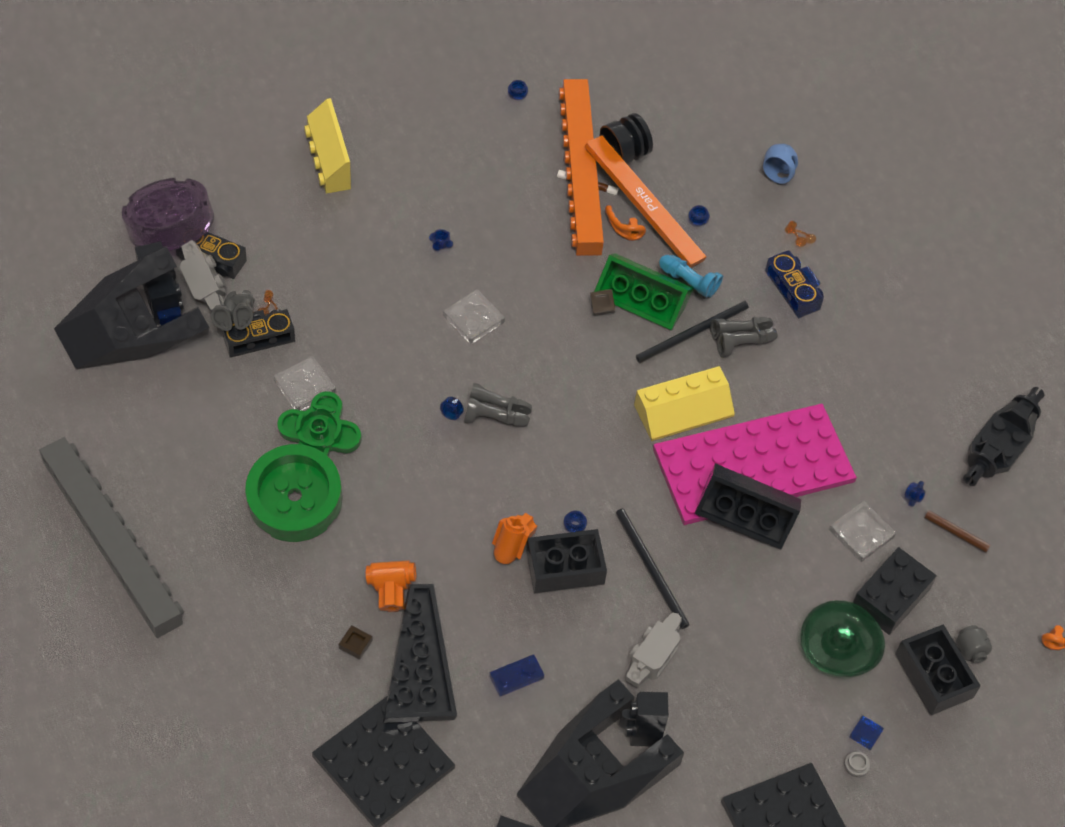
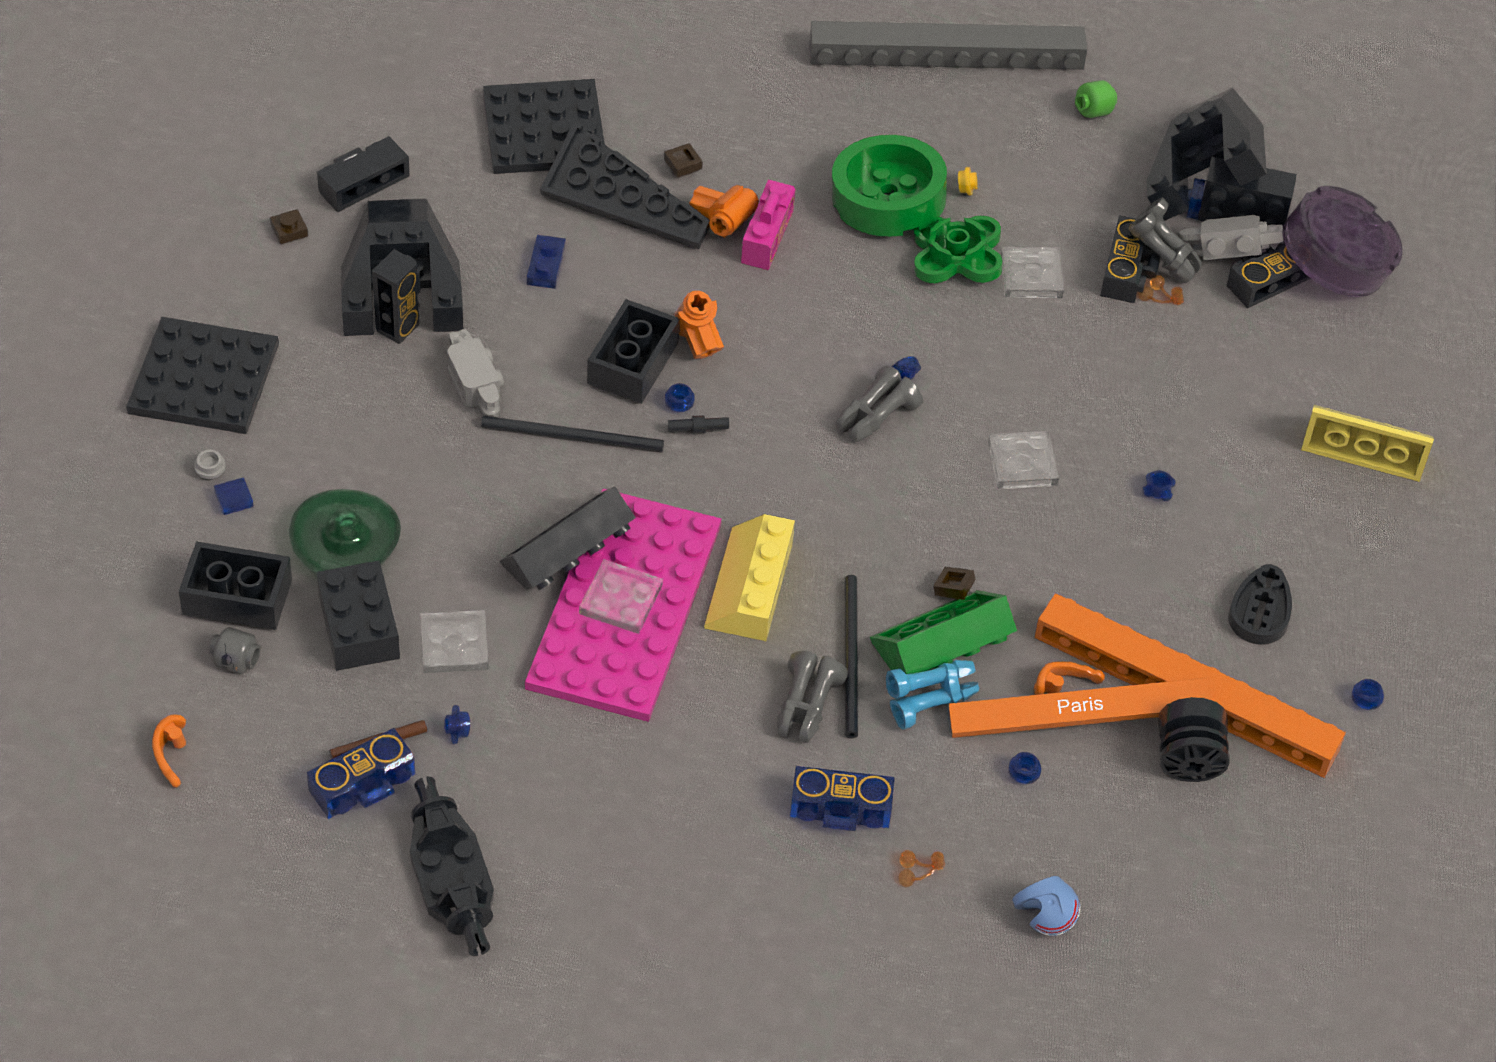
camera: 125 degrees right, 5 degrees down
(107, 417) = (1095, 99): none -> bright green head
(248, 456) = (967, 181): none -> yellow plate
(385, 547) = (768, 225): none -> dark pink piece
(494, 148) = (1277, 608): none -> black piece
(588, 499) = (698, 424): none -> black bar
(765, 452) = (621, 596): none -> clear plate
(990, 519) = (362, 774): none -> clear blue piece

